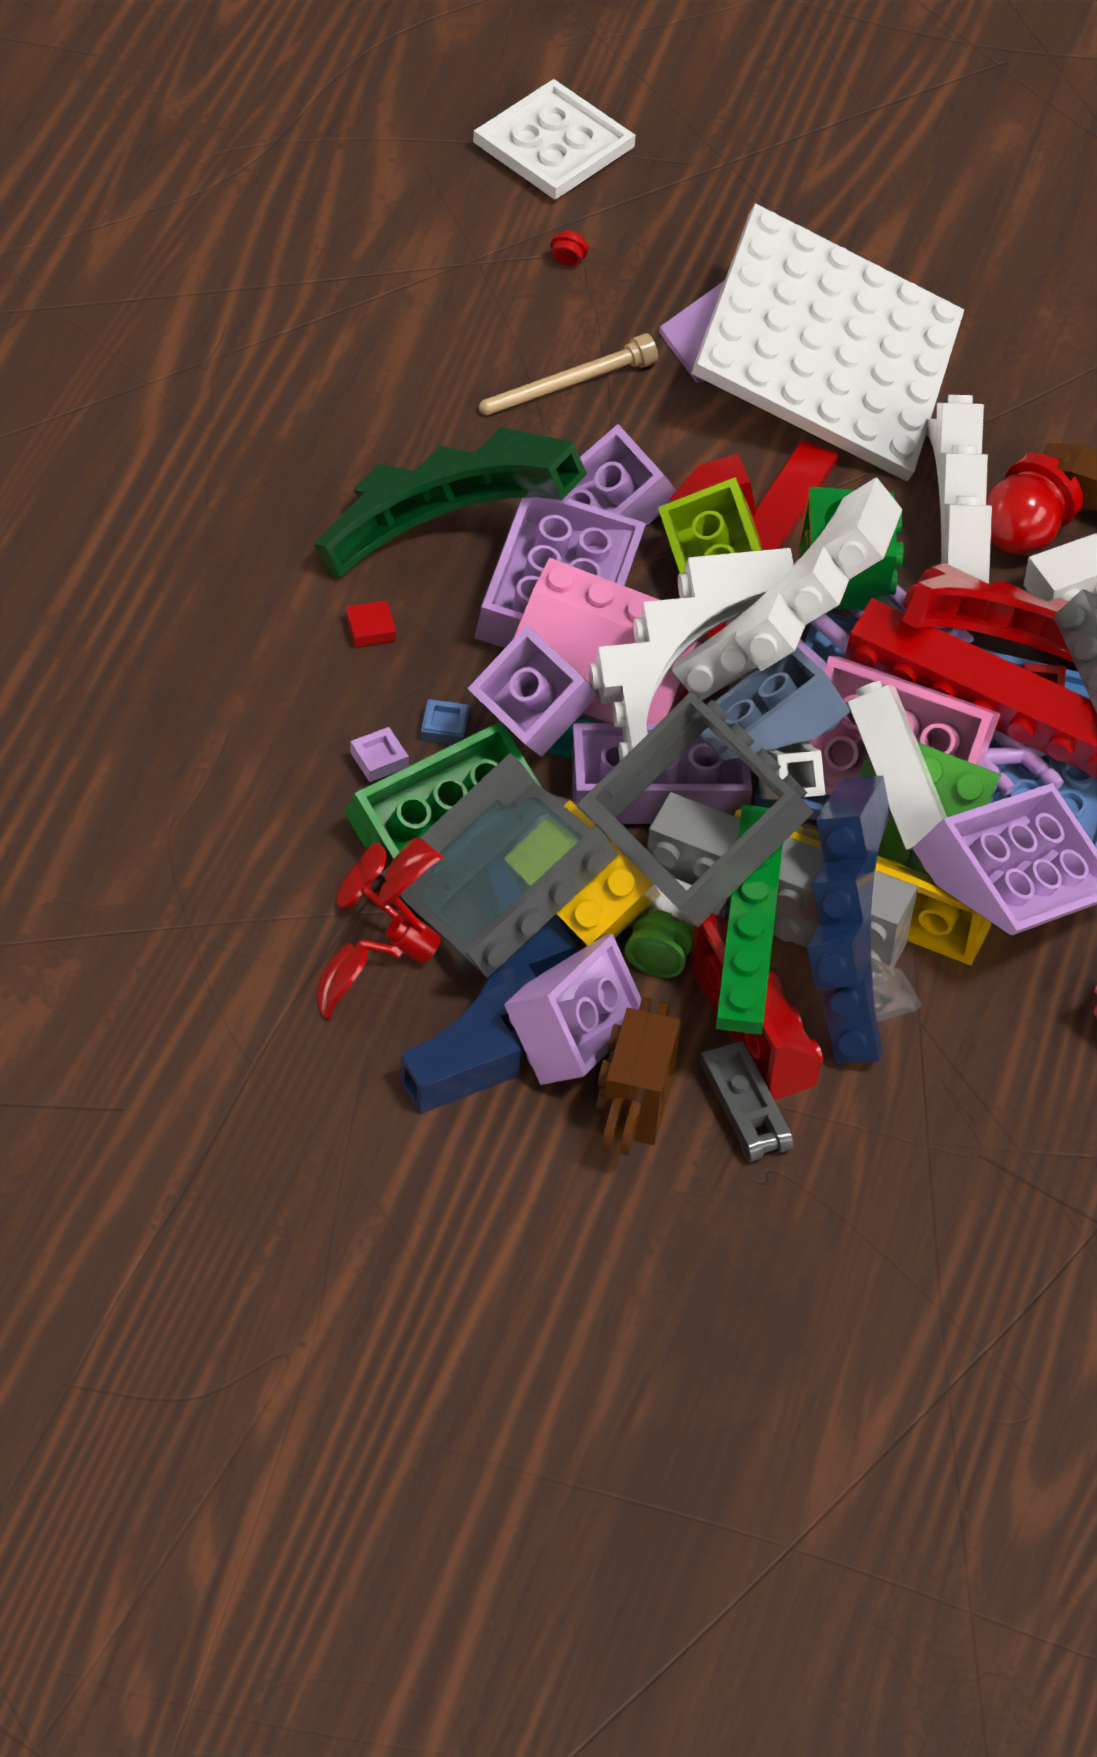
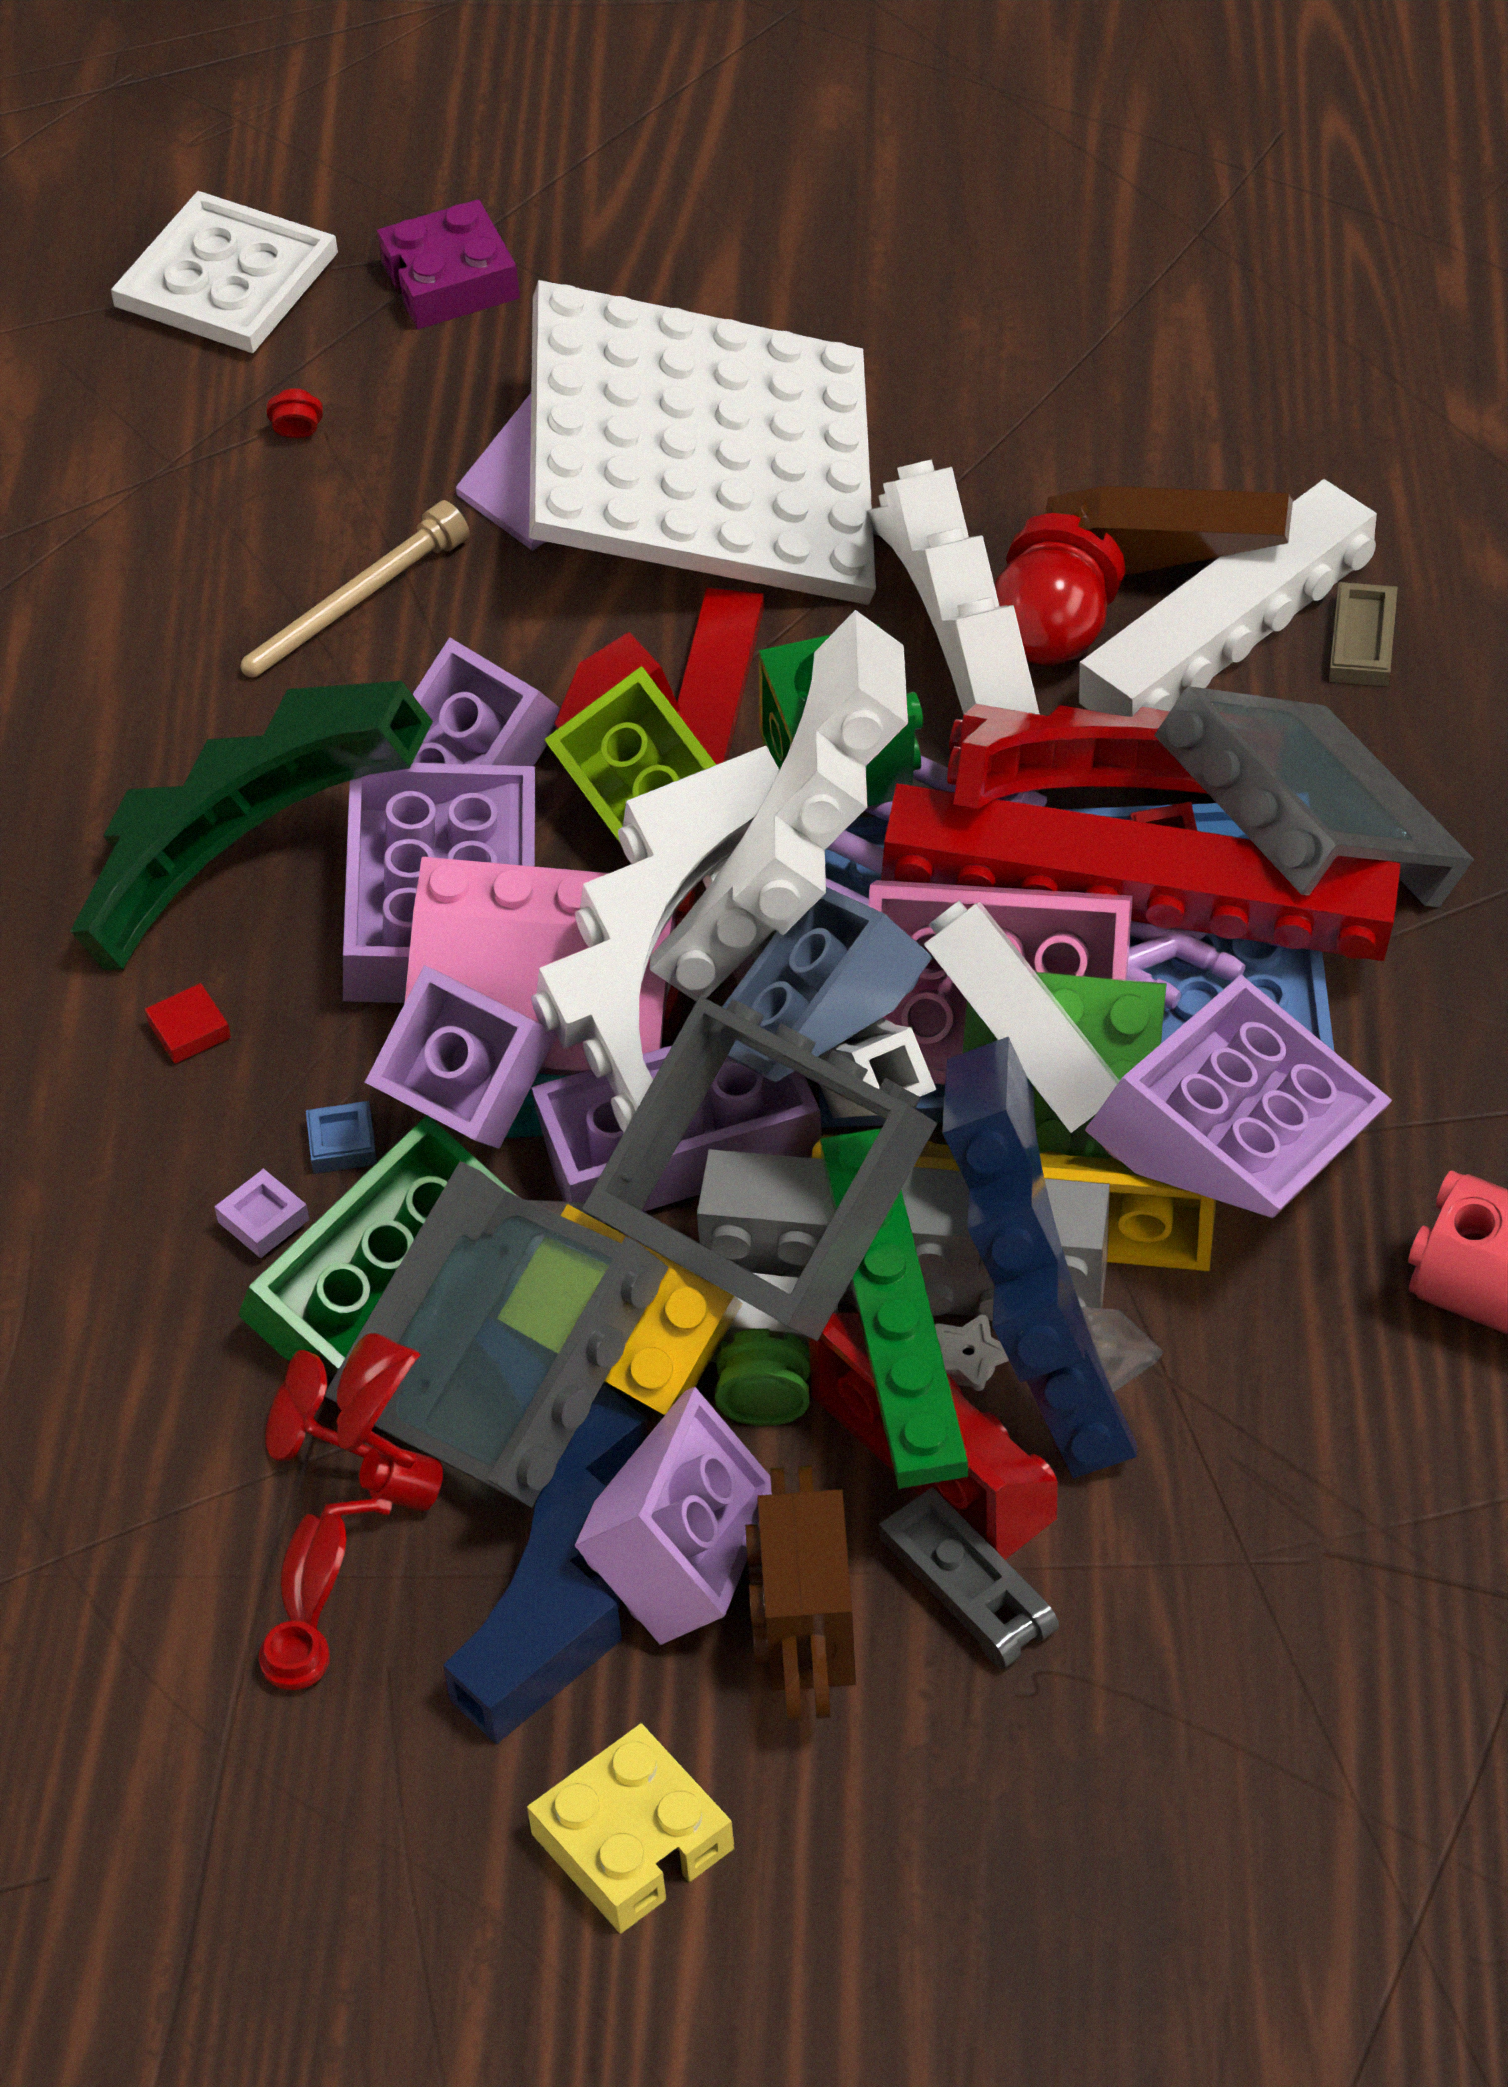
camera: 10 degrees left, 0 degrees up
(312, 1024) = (294, 1655): none -> red plate
(482, 1174) = (624, 1817): none -> light yellow piece
(707, 175) = (451, 263): none -> magenta piece
(793, 979) = (975, 1368): none -> white plate

